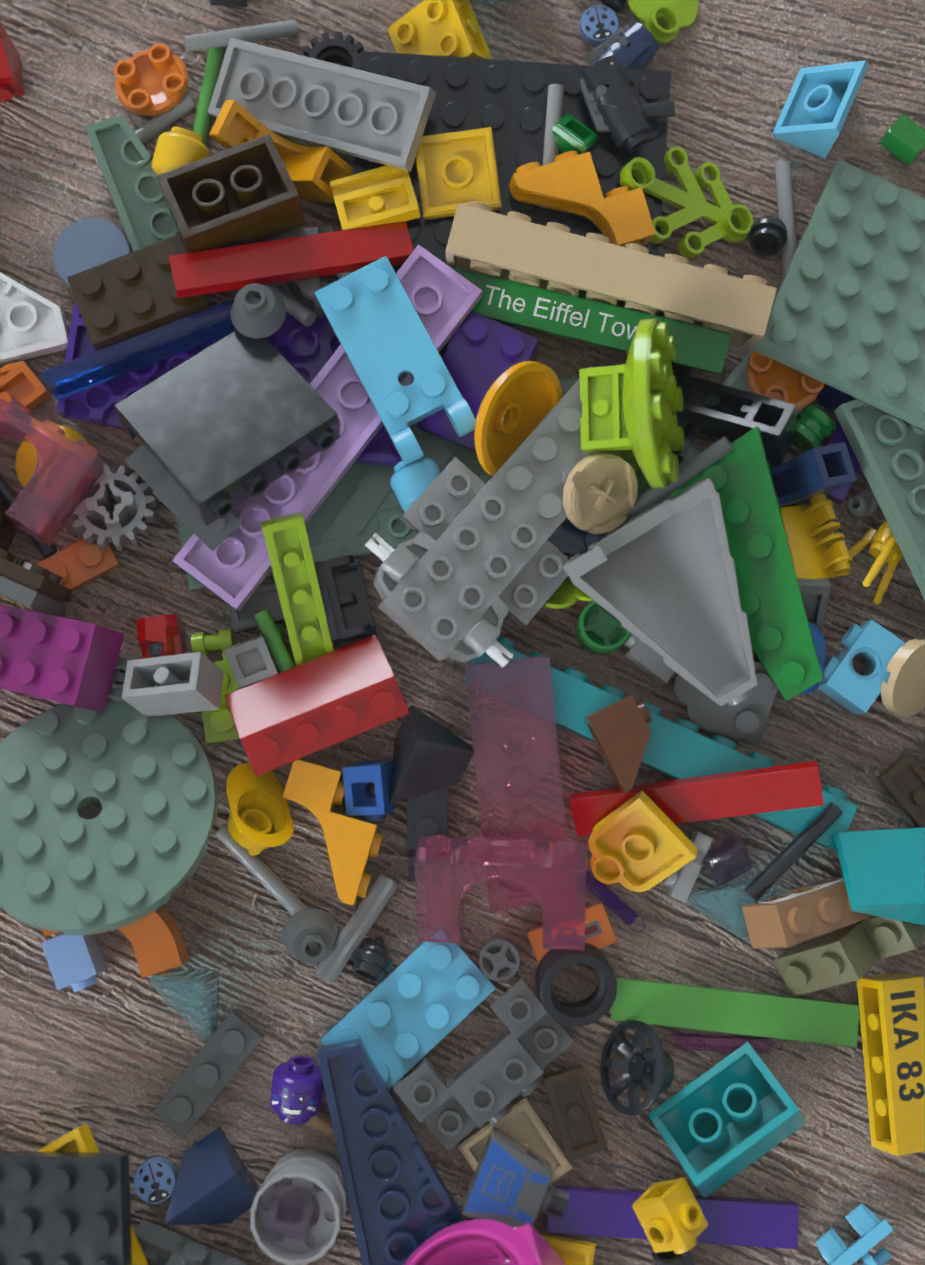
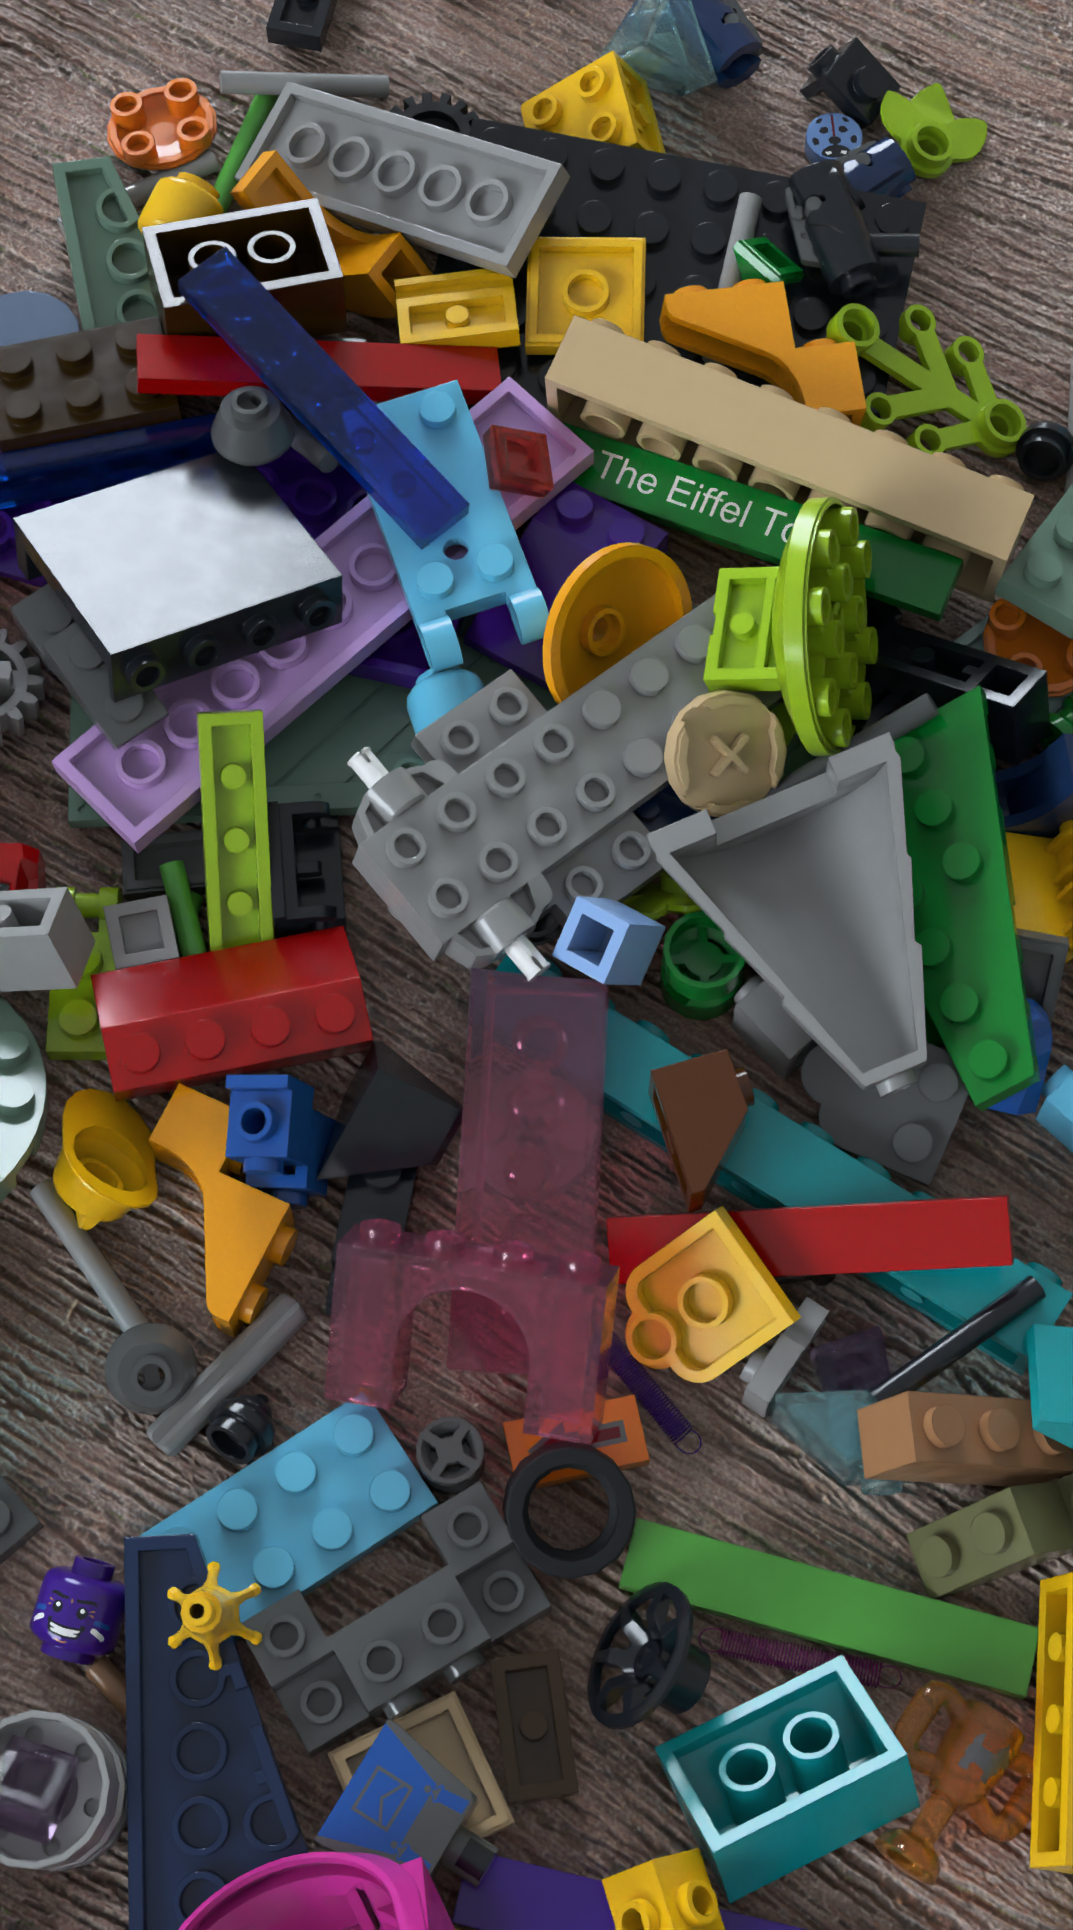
camera: 10 degrees right, 15 degrees down
(300, 286) = (323, 397): none -> clear blue tile
(364, 772) = (287, 1125): none -> blue brick
(378, 1098) = (212, 1615): none -> yellow piece
(435, 309) = (517, 461): none -> clear red tile
(546, 631) = (608, 941): none -> light blue brick
(827, 1100) = (961, 1773): none -> clear orange piece

